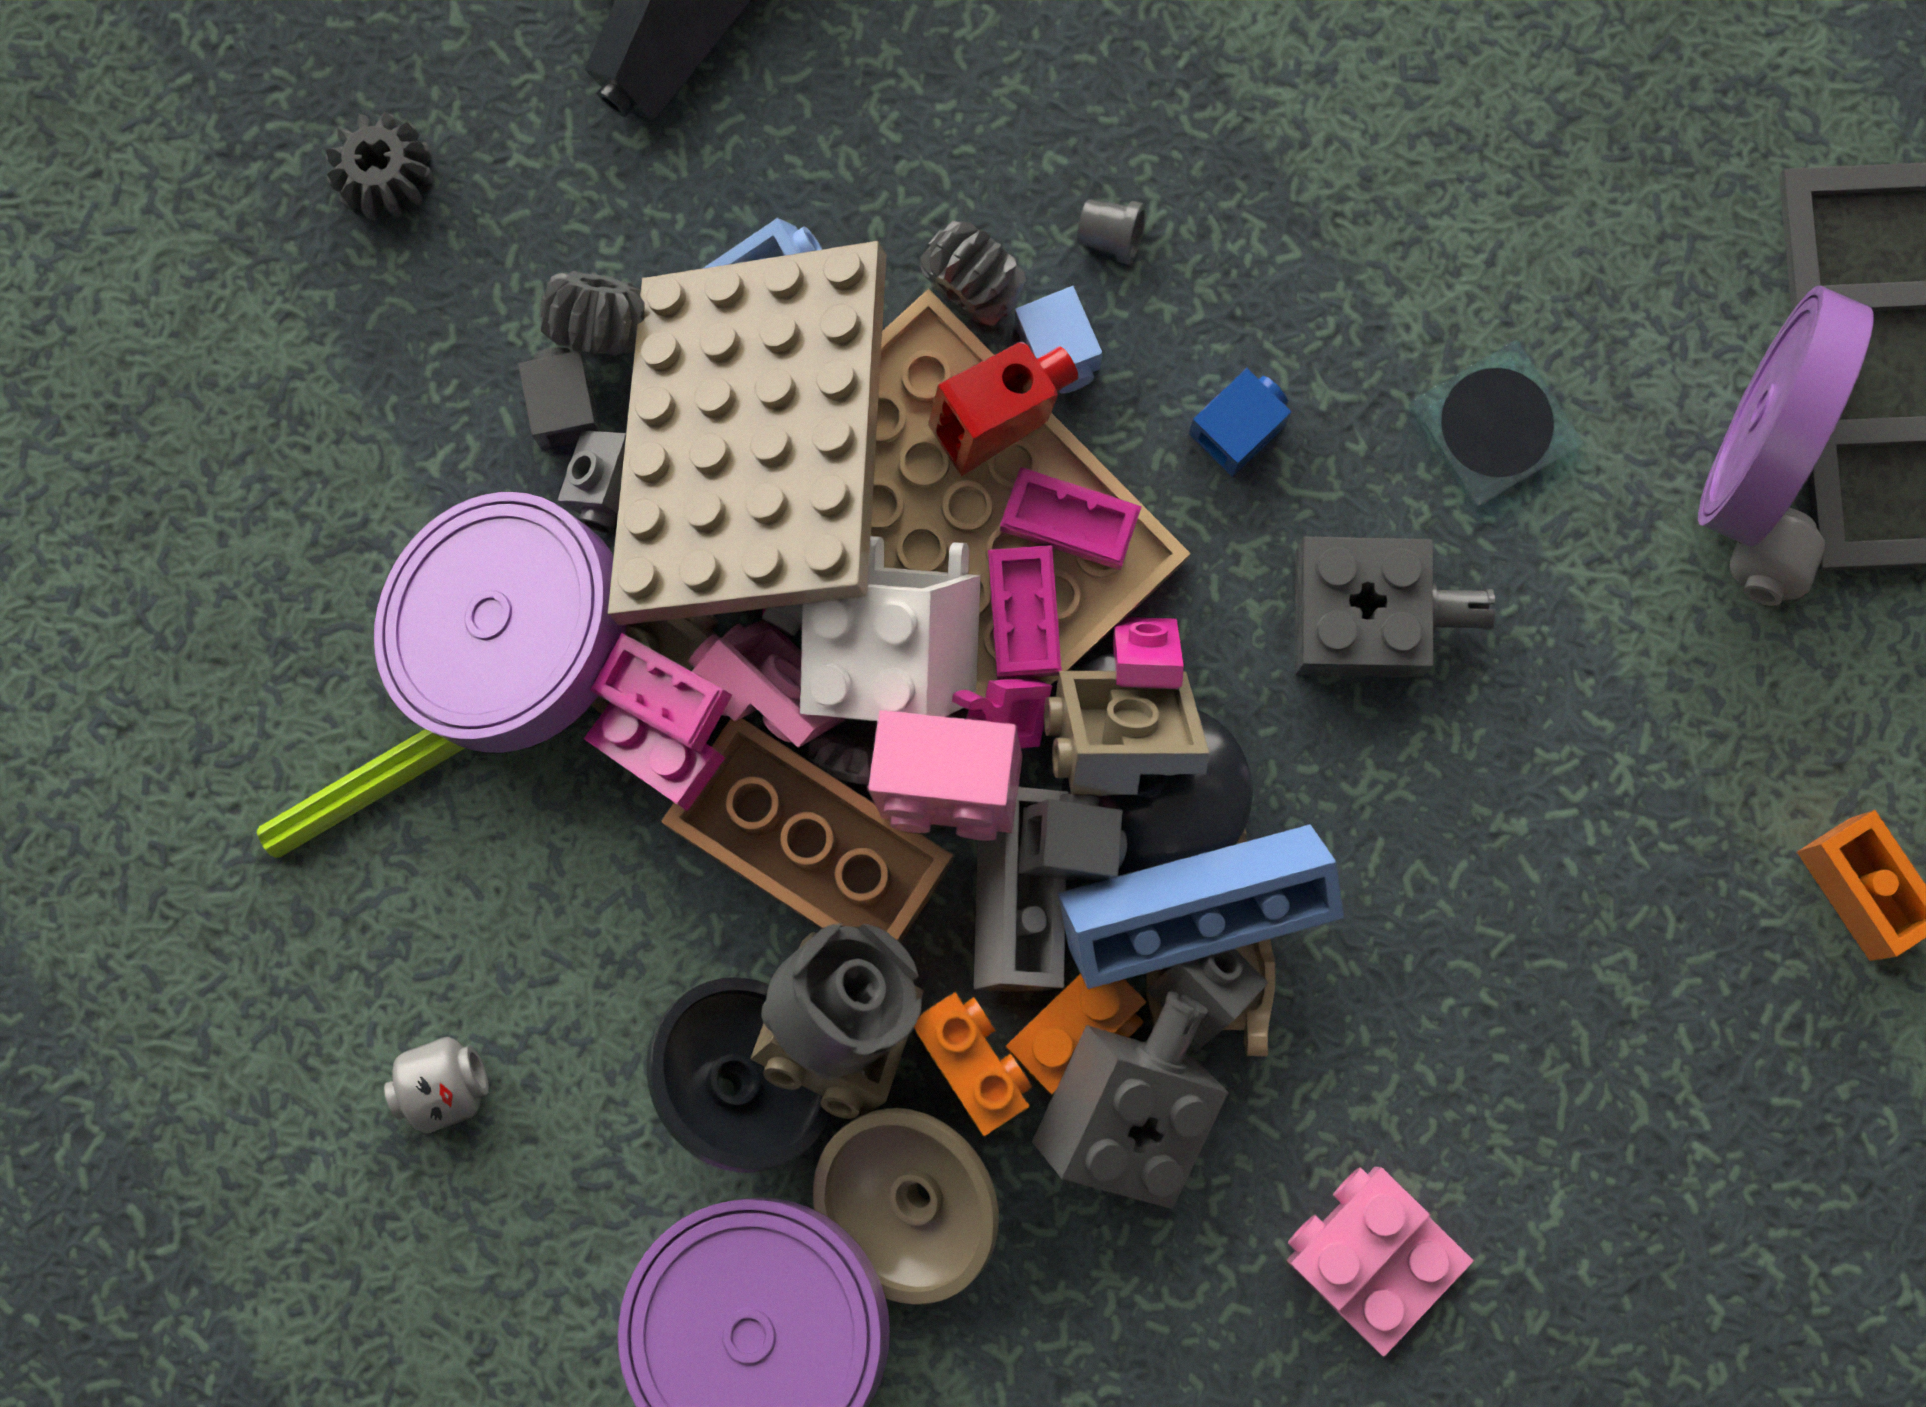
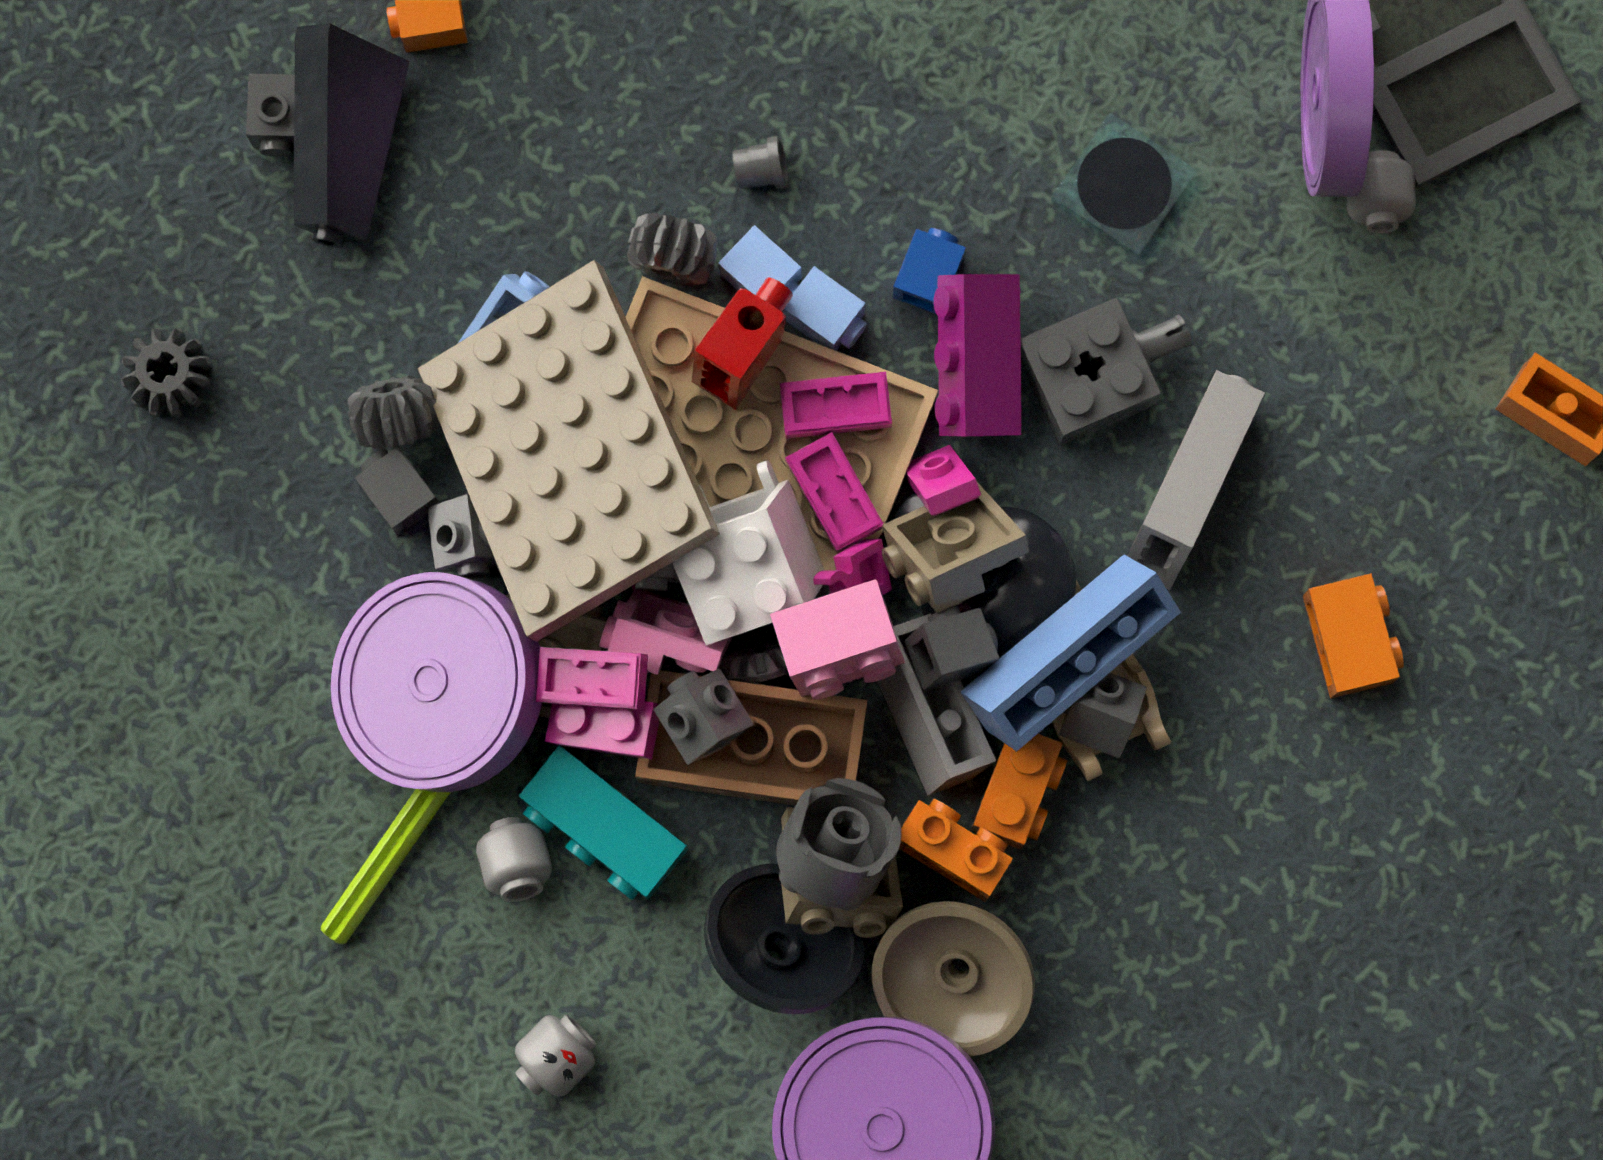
camera: 25 degrees left, 0 degrees up
(495, 851) = (514, 859): none -> light grey head
(606, 857) = (601, 825): none -> teal brick
(760, 788) = (702, 714): none -> dark grey brick
(1108, 414) = (826, 311): none -> light blue brick
(1133, 1109) = (1091, 827): dark grey brick -> none
(1251, 533) = (978, 355): none -> magenta brick
(1377, 1257) = (1321, 856): bright pink plate -> none
(1429, 775) = (1195, 476): none -> light grey slope
(1525, 1029) = (1353, 635): none -> orange brick

